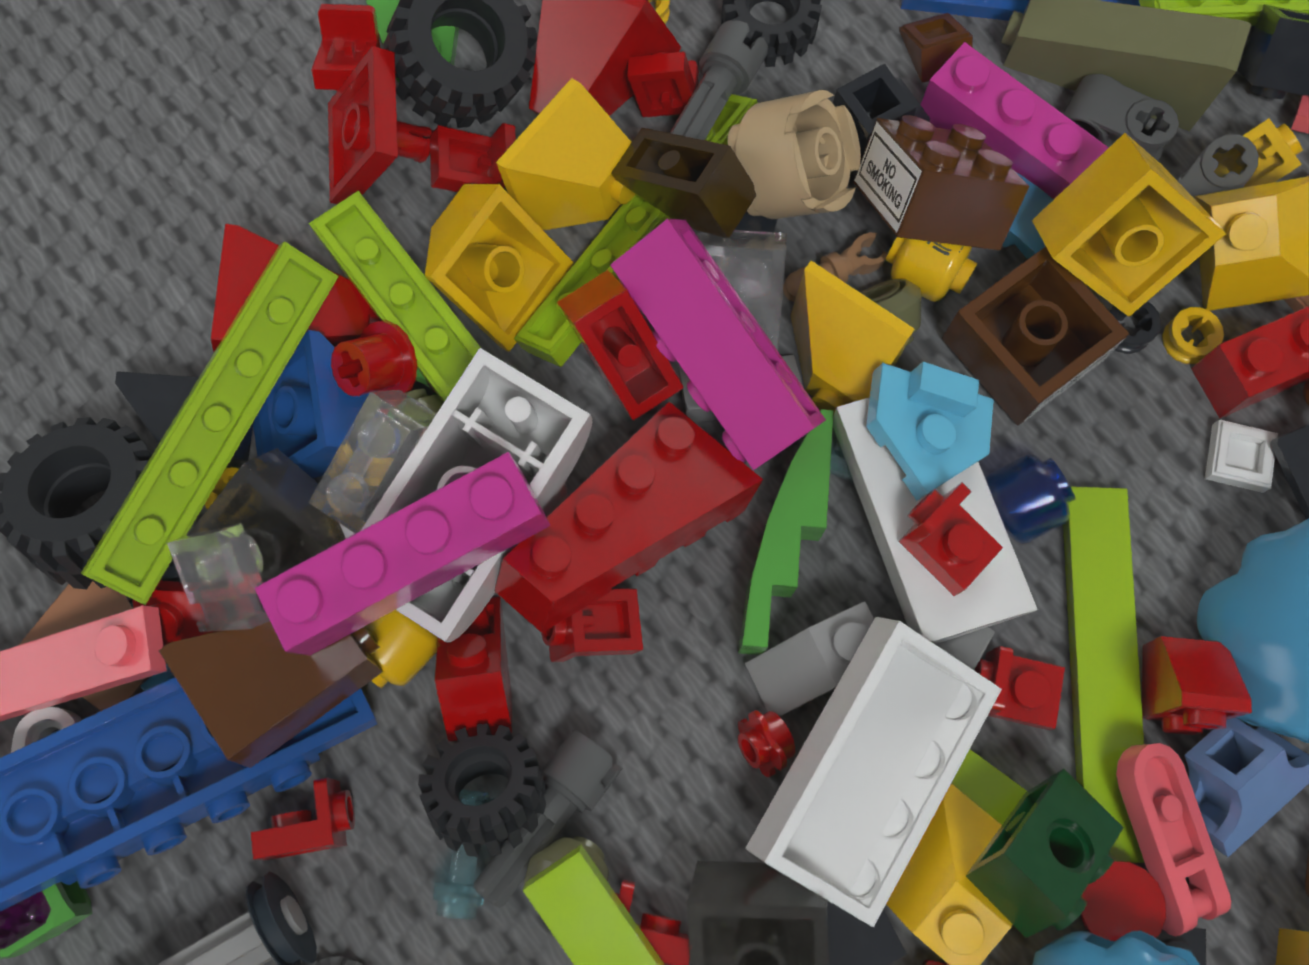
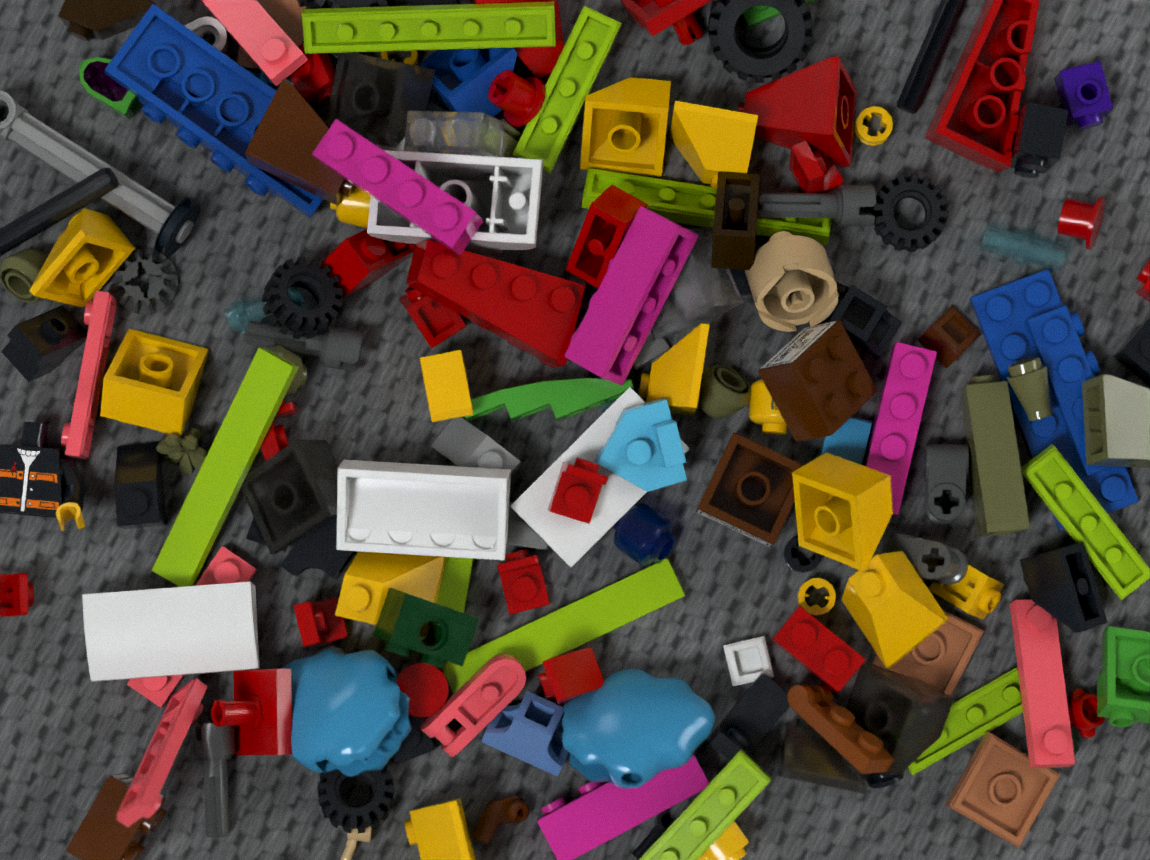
camera: 70 degrees right, 10 degrees up
(220, 573) = (340, 90): clear plate -> none
(296, 832) = (227, 208): red bracket -> none
(467, 157) = (693, 75): red bracket -> none
(713, 649) = (446, 385): none -> yellow slope
(765, 741) = (413, 446): red plate -> none
(840, 265) = (741, 345): medium nougat piece -> none

